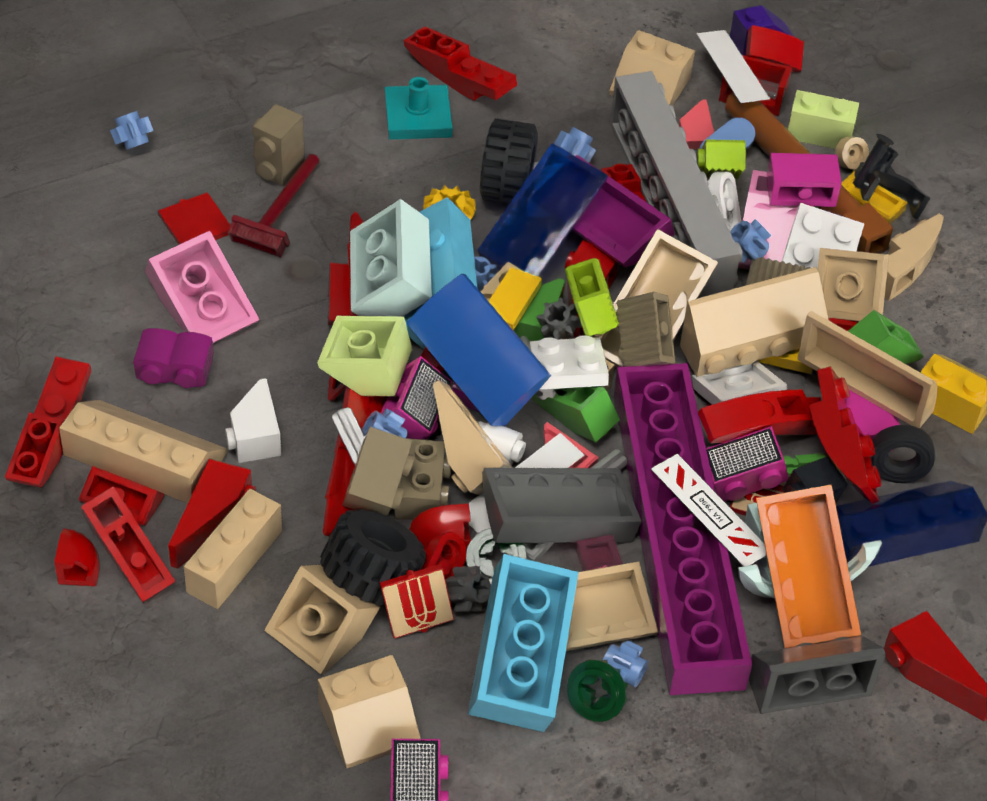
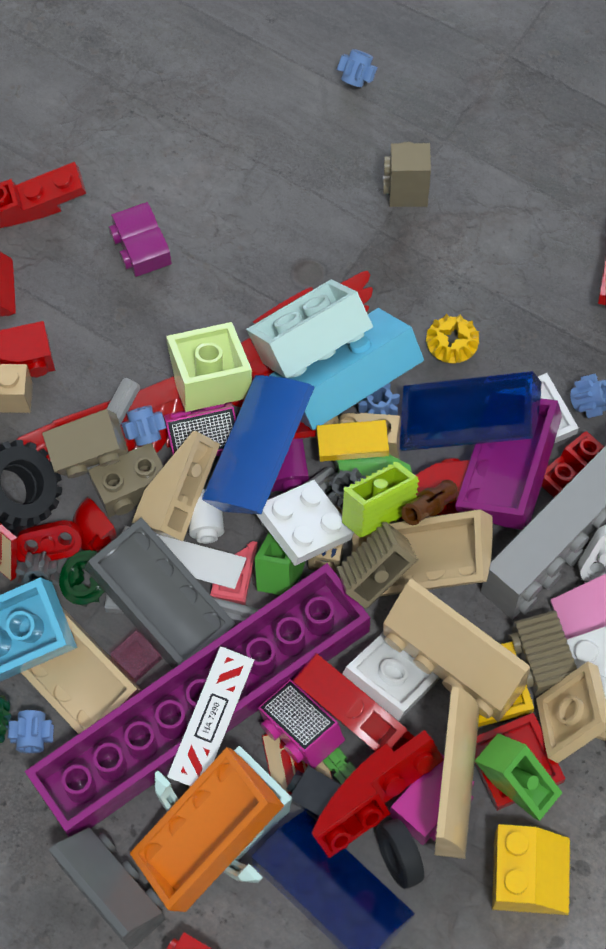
camera: 65 degrees right, 15 degrees up
(137, 448) = (43, 268): tan slope -> none
(193, 218) = (302, 170): red piece -> none
(201, 288) = (220, 217): bright pink slope -> none
(254, 426) = (111, 332): white slope -> none
(261, 234) = (313, 219): dark red piece -> none
(418, 110) = (549, 254): teal tile -> none
(507, 159) = (515, 346): black tyre -> none
(616, 269) = (430, 502): none -> reddish brown pin
(751, 239) = (565, 596): medium blue gear -> none

